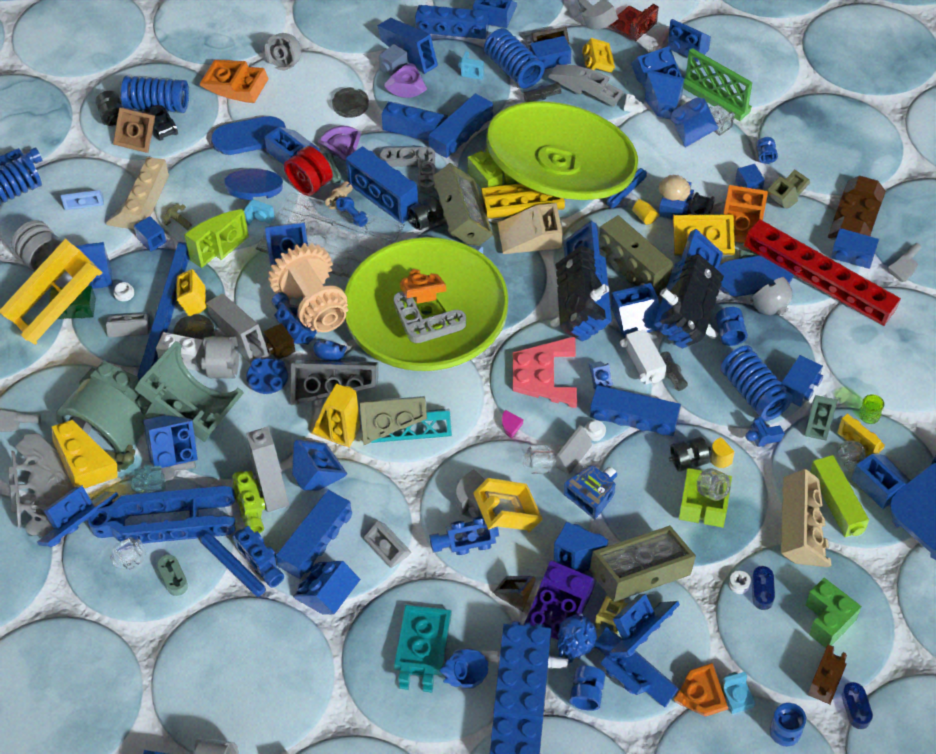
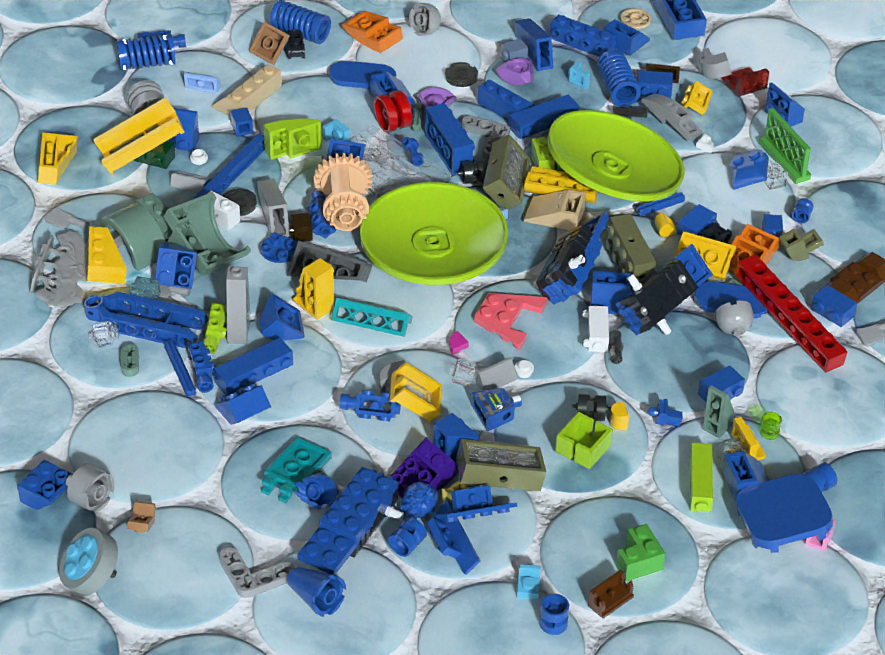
camera: 20 degrees right, 10 degrees down
(71, 511) = (74, 289): blue bracket -> none
(108, 107) = (256, 19): pearl dark grey wheel -> none
(127, 459) = (135, 271): olive piece -> none
(172, 213) = (268, 112): olive piece -> none
(191, 292) = (249, 171): yellow brick -> none
(220, 357) = (247, 222): light grey brick -> none
(253, 183) = (344, 109): blue tile -> none
(329, 350) = (337, 245): blue hair -> none
(342, 191) = (416, 135): tan pin -> none
(386, 544) = (308, 393): light grey slope -> none
(389, 415) = (356, 301): wing -> none
(419, 324) = (413, 245): light grey beam -> none
(422, 286) = (434, 217): orange plate -> none
(516, 590) = (390, 456): dark brown slope -> none
(600, 374) = (551, 331): blue piece -> none
(635, 410) = (565, 364): blue brick -> none
(659, 61) = (741, 121): blue slope -> none
(663, 93) = (735, 138): blue slope -> none
(674, 188) = (696, 211): tan hair -> none
(702, 692) = (500, 571): orange plate -> none
(713, 484) = (590, 426): clear head -> none
(731, 326) = (685, 329): blue wheel -> none
(737, 587) = (579, 516): white bush -> none
(756, 383) = (679, 374): blue piece -> none
(758, 588) = (592, 519): clear blue beam -> none
(803, 520) = (657, 485): tan wedge -> none
(862, 703) = (620, 624): clear blue beam -> none

